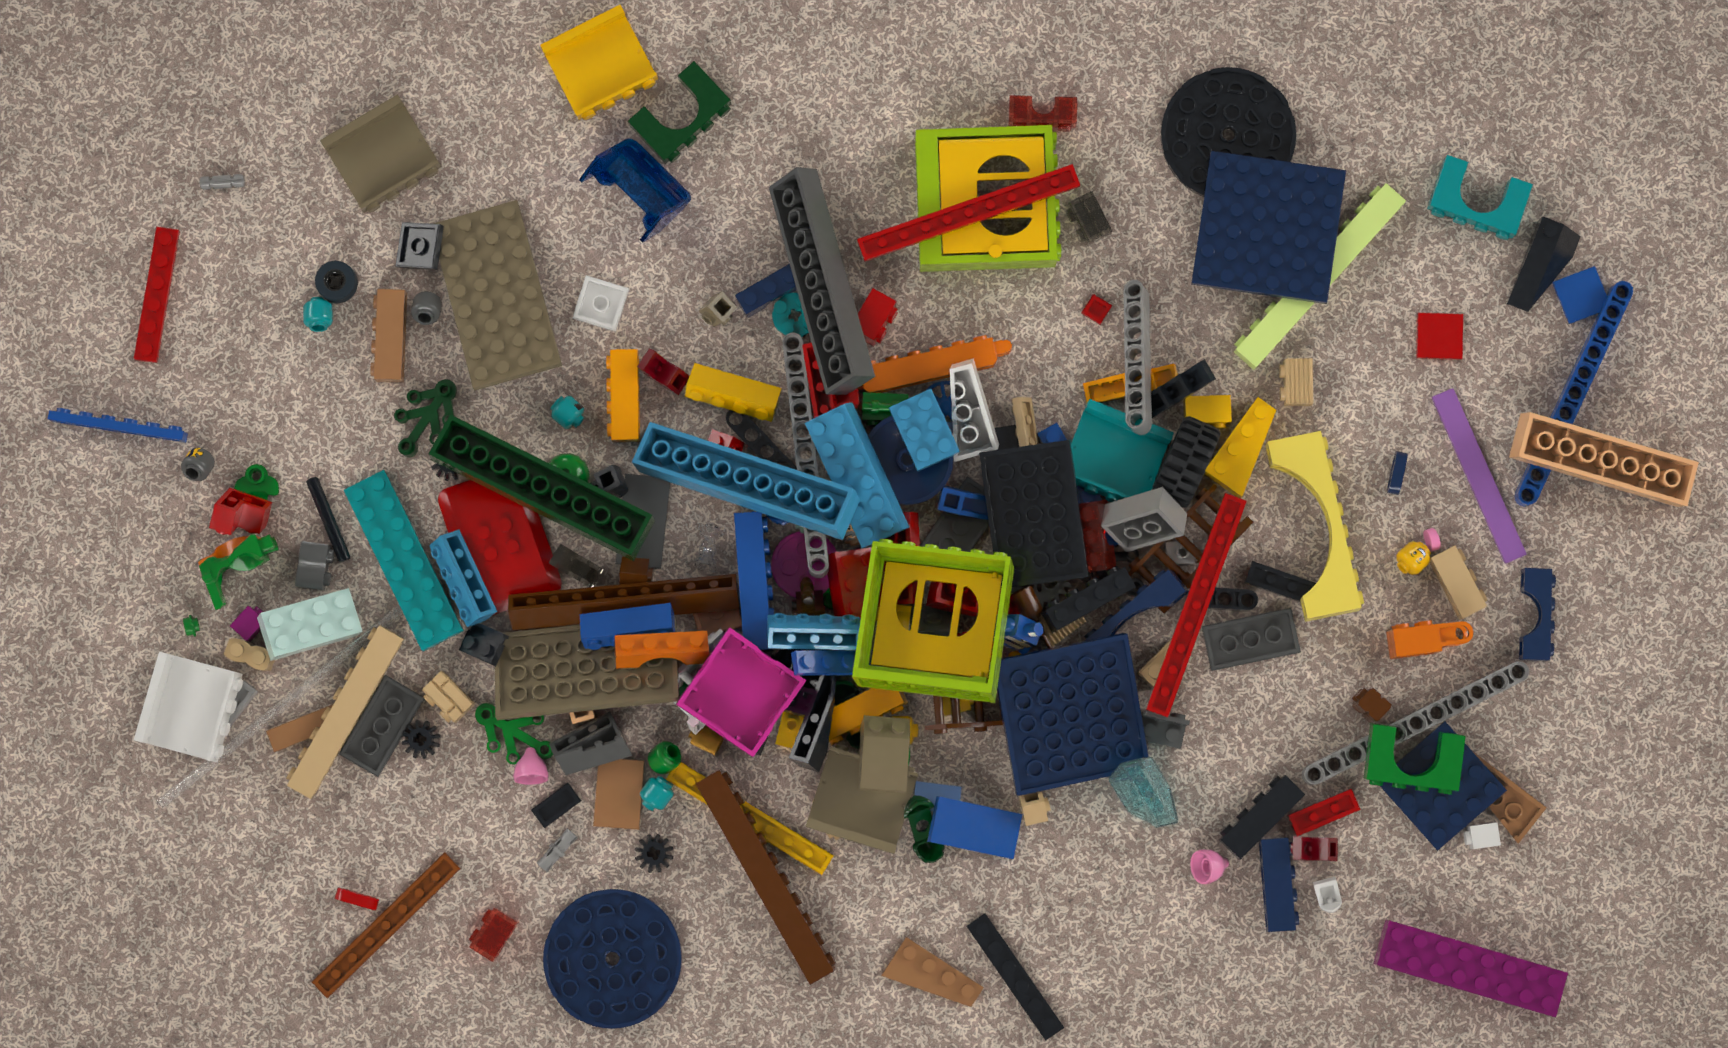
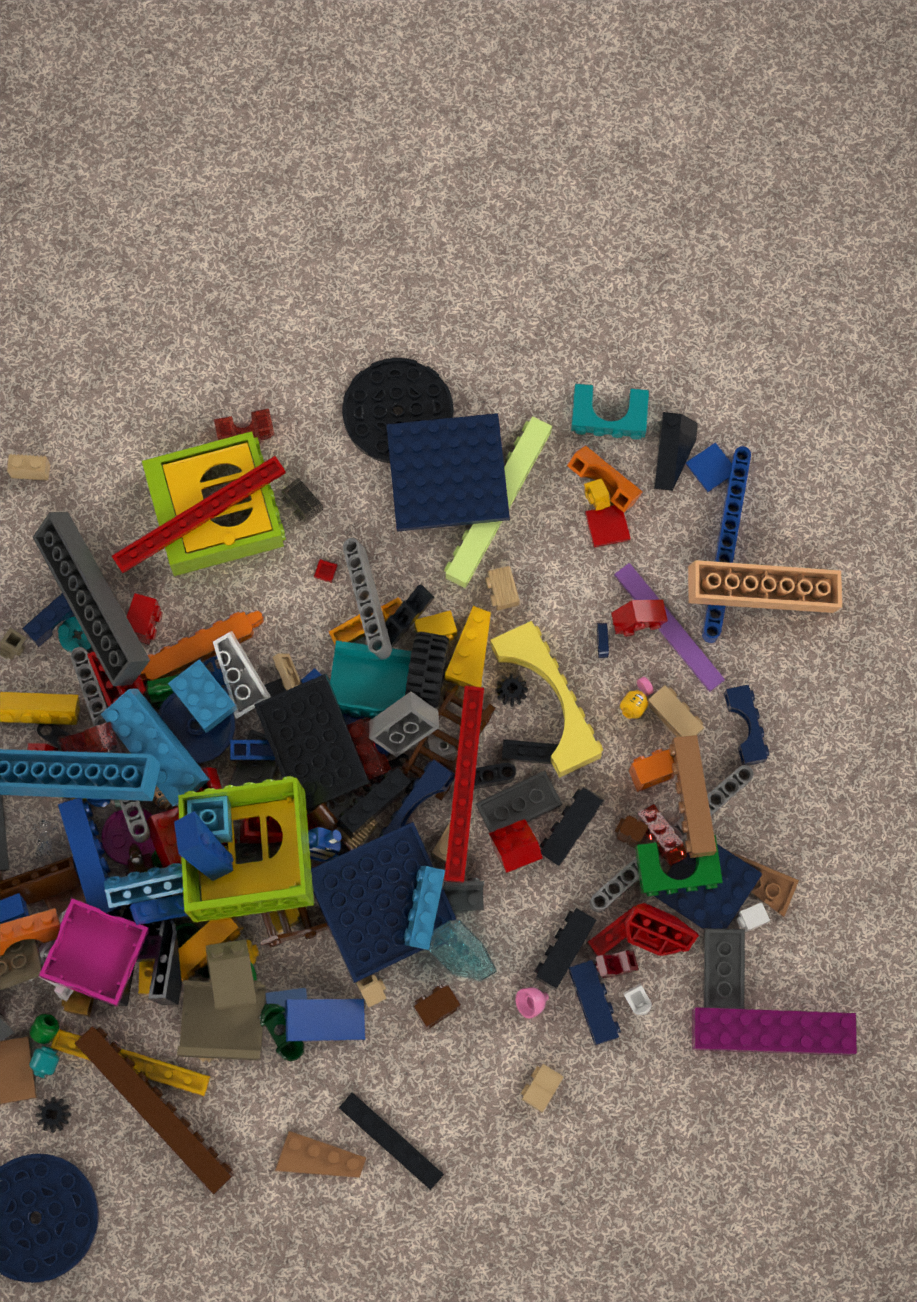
camera: 20 degrees left, 10 degrees down
(781, 99) = (28, 467): none -> tan brick
(786, 451) = (94, 739): none -> clear red arch
(886, 608) = (201, 847): none -> blue wedge
(900, 577) = (215, 814): none -> medium azure brick
(1101, 845) = (436, 1006): none -> reddish brown brick
(1116, 733) = (424, 908): none -> dark azure brick
(1195, 962) = (542, 1087): none -> tan brick
(1235, 688) = (515, 845): none -> red brick
(1281, 511) = (518, 693): none -> black gear
(1305, 681) = (571, 825): none -> black wedge
(1371, 824) = (658, 931): none -> red wedge
(1408, 723) = (668, 841): none -> clear red arch
(1434, 884) = (724, 968): none -> dark grey tile
(1437, 296) = (597, 494): none -> yellow brick
(1439, 259) = (590, 465): none -> orange arch
(1447, 456) = (638, 616): none -> red brick
(1452, 686) = (693, 796): none -> medium nougat brick

